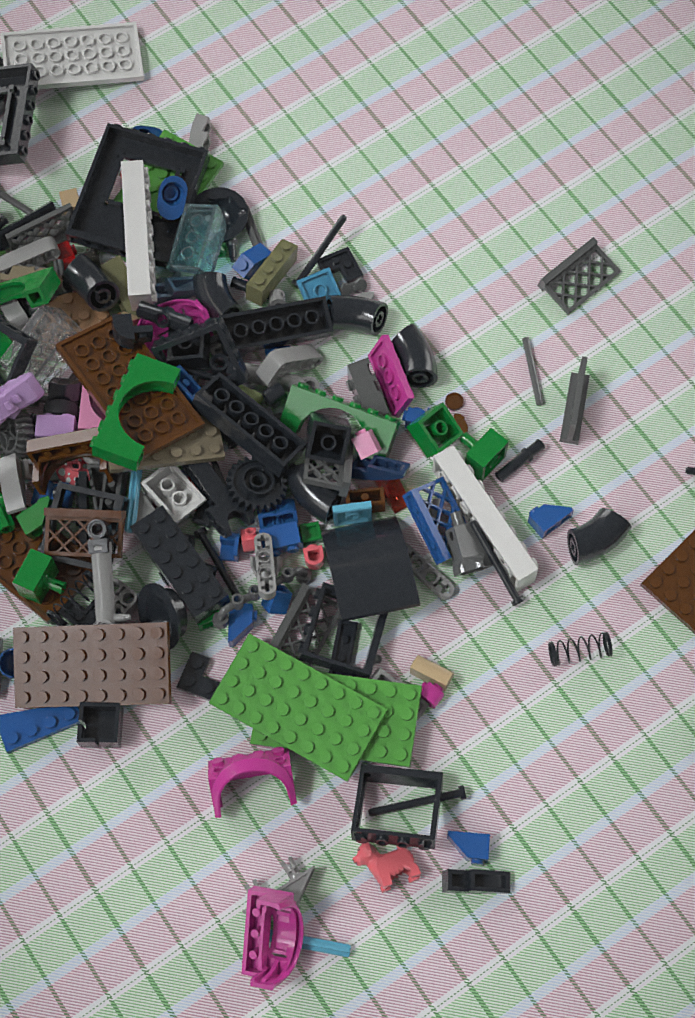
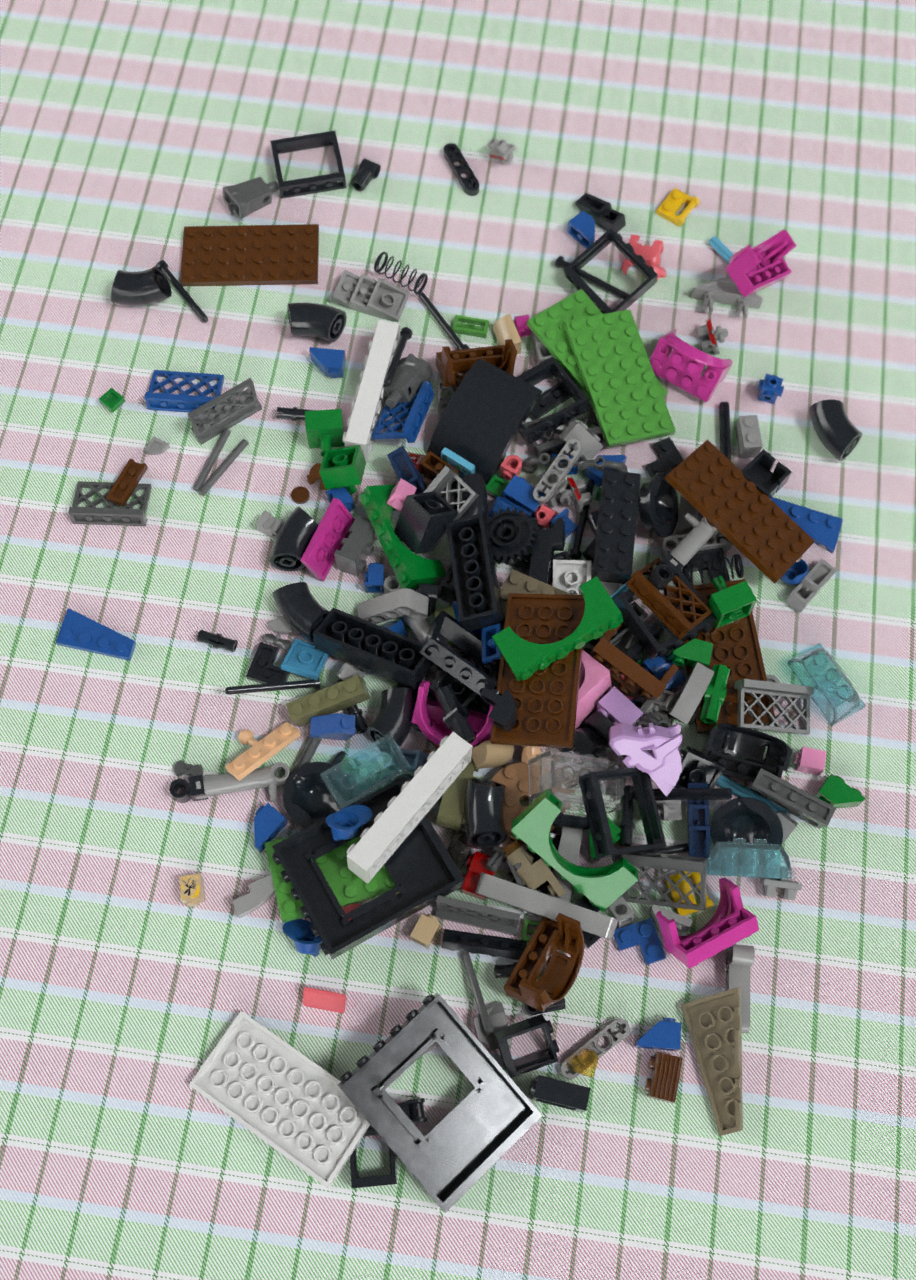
camera: 140 degrees left, 0 degrees up
(74, 827) = (834, 427): none -> black brick
(100, 124) = (324, 1000): none -> coral slope
(144, 757) = (748, 436): none -> light grey brick
(164, 741) = (724, 422): none -> black axle
(167, 828) = (770, 388): none -> blue brick
(234, 573) = (573, 494): none -> light grey hips
(235, 176) = (267, 825): none -> blue slope
(243, 108) = (192, 889): none -> tan brick
(256, 835) = (708, 331): none -> light grey hips
(274, 616) = (588, 441): none -> light grey brick
(284, 209) = (261, 750): none -> light nougat plate
(302, 163) = (202, 787): none -> light grey piece
(328, 166) = (182, 768): none -> dark grey piece
(331, 384) = (374, 578): none -> blue brick
(395, 254) = (217, 640): none -> black pin
(420, 960) = (674, 203): none -> yellow plate
(446, 600) = (453, 362): none -> reddish brown piece
(447, 357) = (269, 525): none -> light grey leg
(460, 668) = (470, 328): none -> bright green tile
(487, 185) = (90, 636): none -> blue wing
(498, 639) = (442, 322): none -> black bar
(547, 368) = (210, 462): none -> dark grey piece
(582, 608) = (370, 296): none -> light grey slope
(583, 295) = (126, 482): none -> reddish brown hinge
(599, 343) = (156, 447): none -> light grey tile
(617, 390) = (181, 402): none -> blue fence
(629, 862) = (501, 150): none -> light grey hips
(646, 818) = (463, 168): none -> black beam
(672, 344) = (112, 400): none -> green plate

